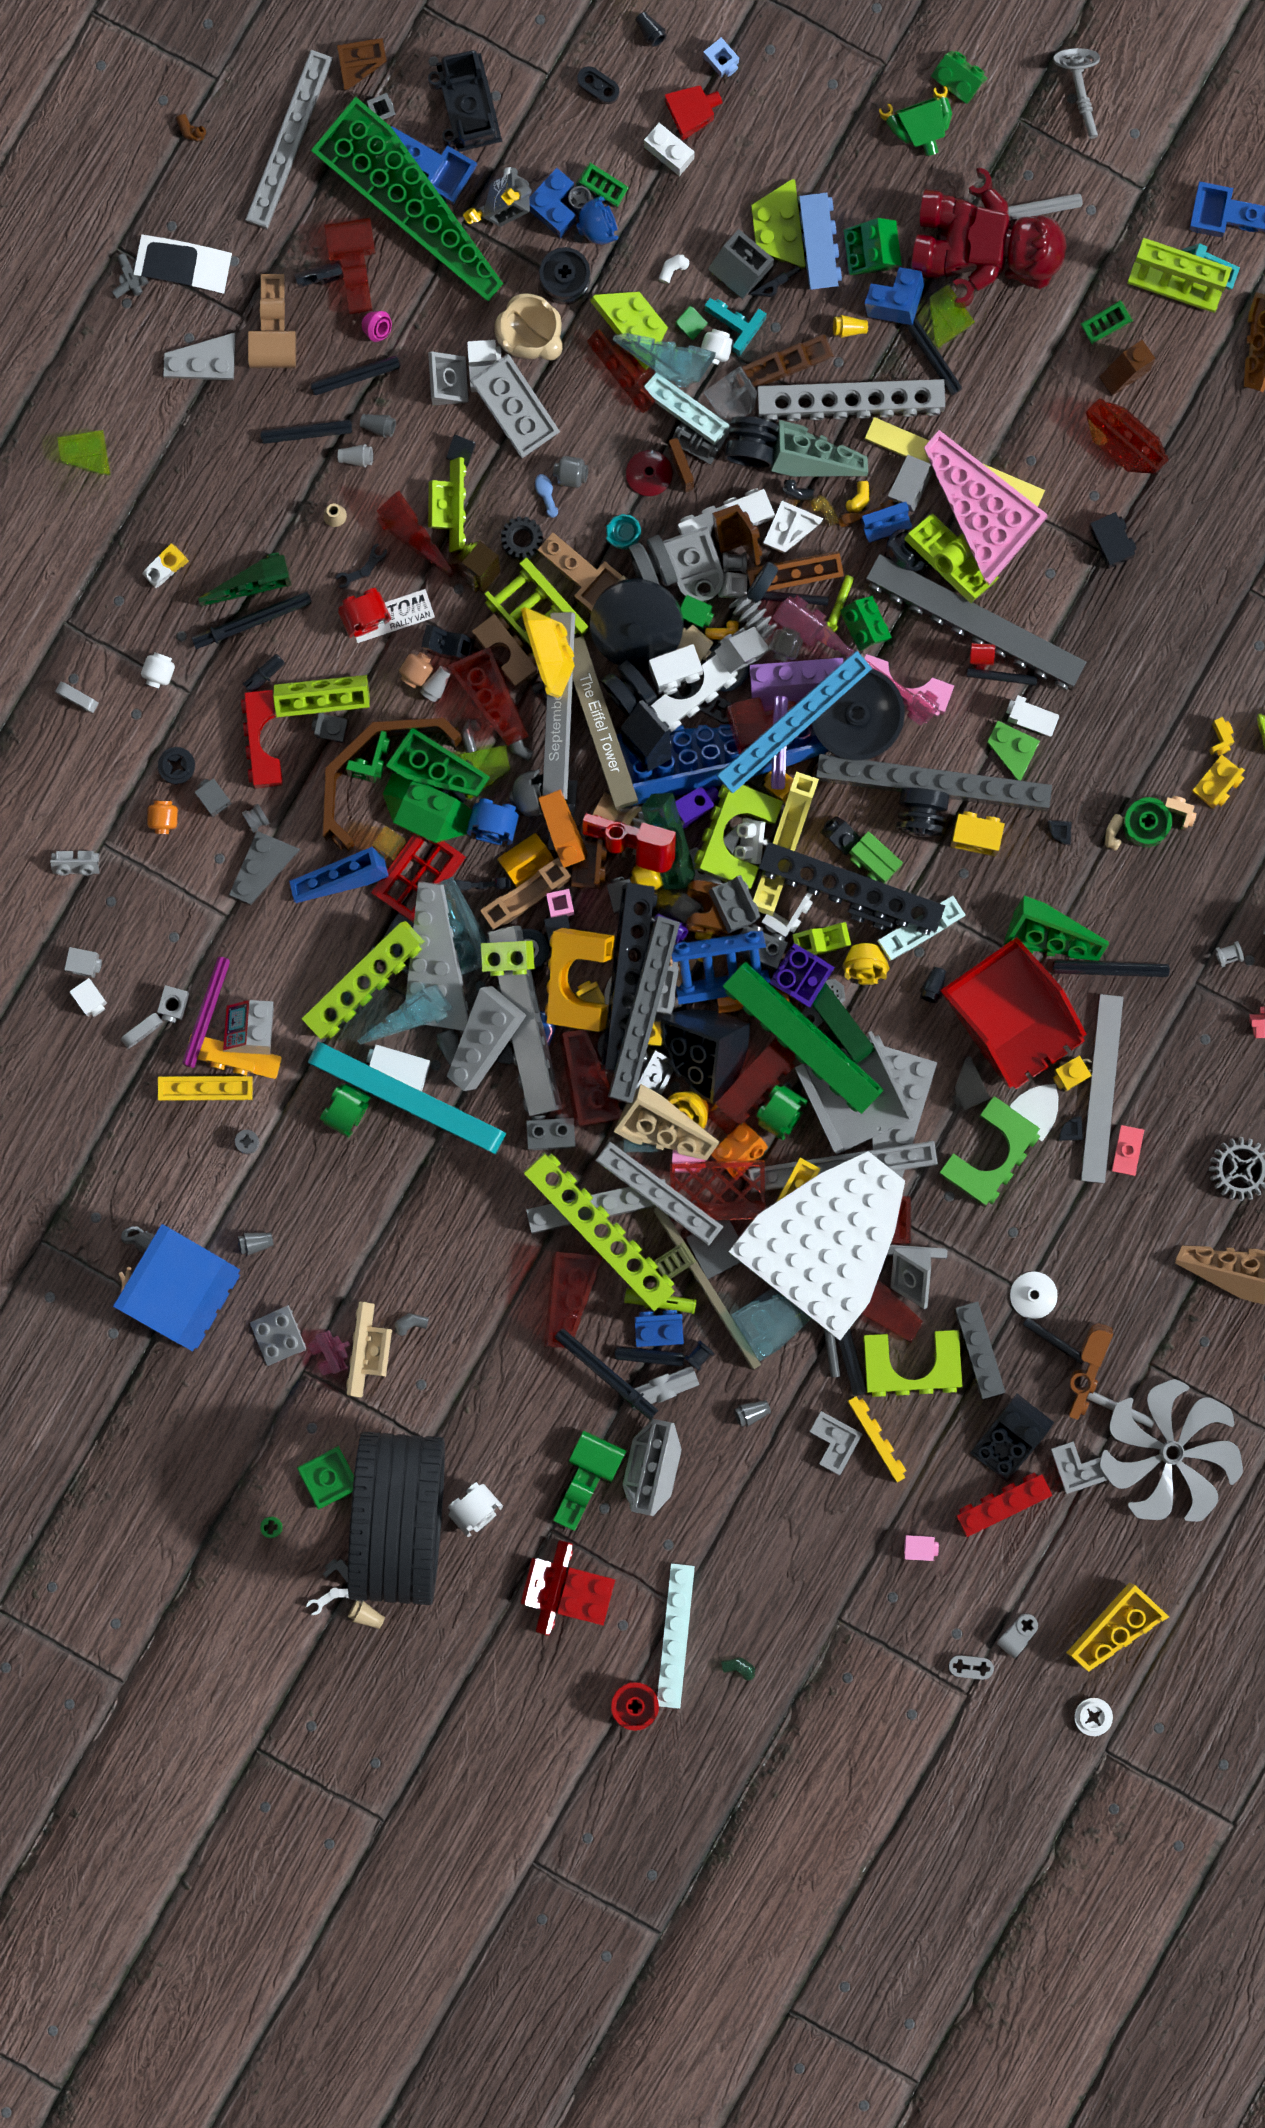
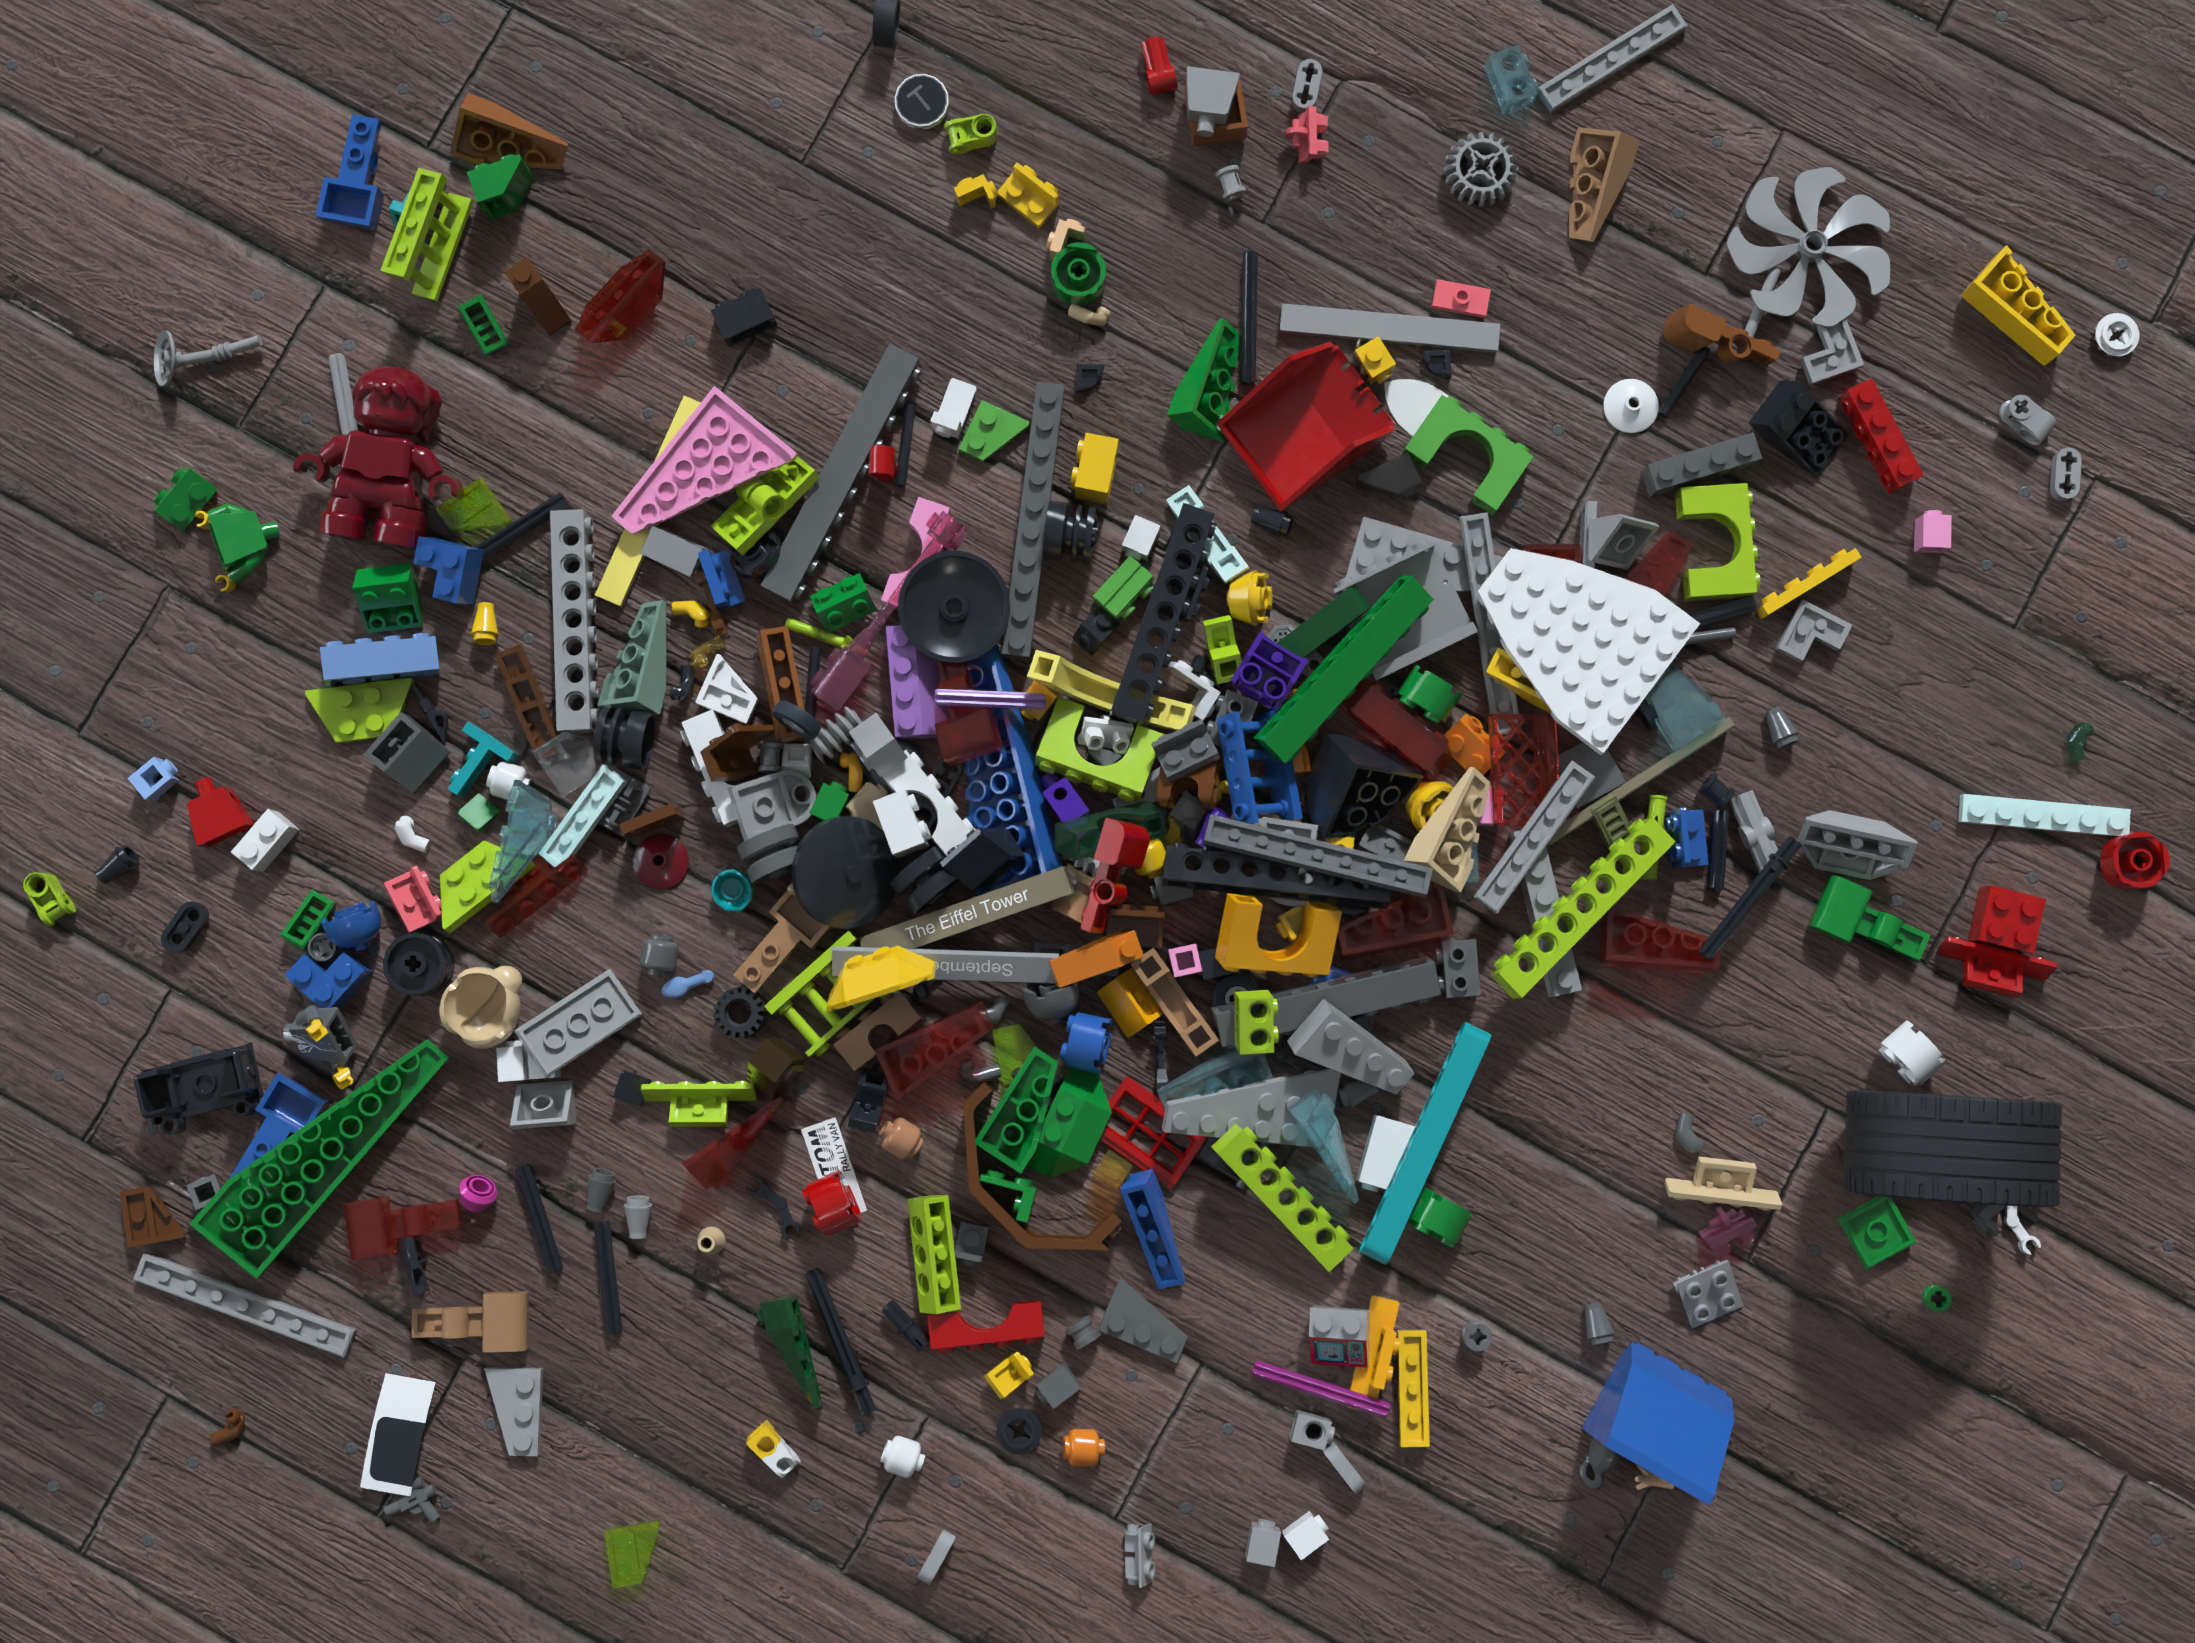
camera: 90 degrees left, 0 degrees up
(222, 757) = (1009, 1374): none -> yellow bracket
(435, 684) = (918, 1114): light grey cone -> none
(618, 271) = (414, 900): none -> coral bracket
(786, 644) = (870, 692): clear smoke head -> none
(794, 722) = (967, 679): dark azure plate -> none
(810, 921) = (1199, 664): none -> black hand
(918, 872) = (1140, 538): none -> white brick
(1223, 336) = (500, 185): none -> green slope

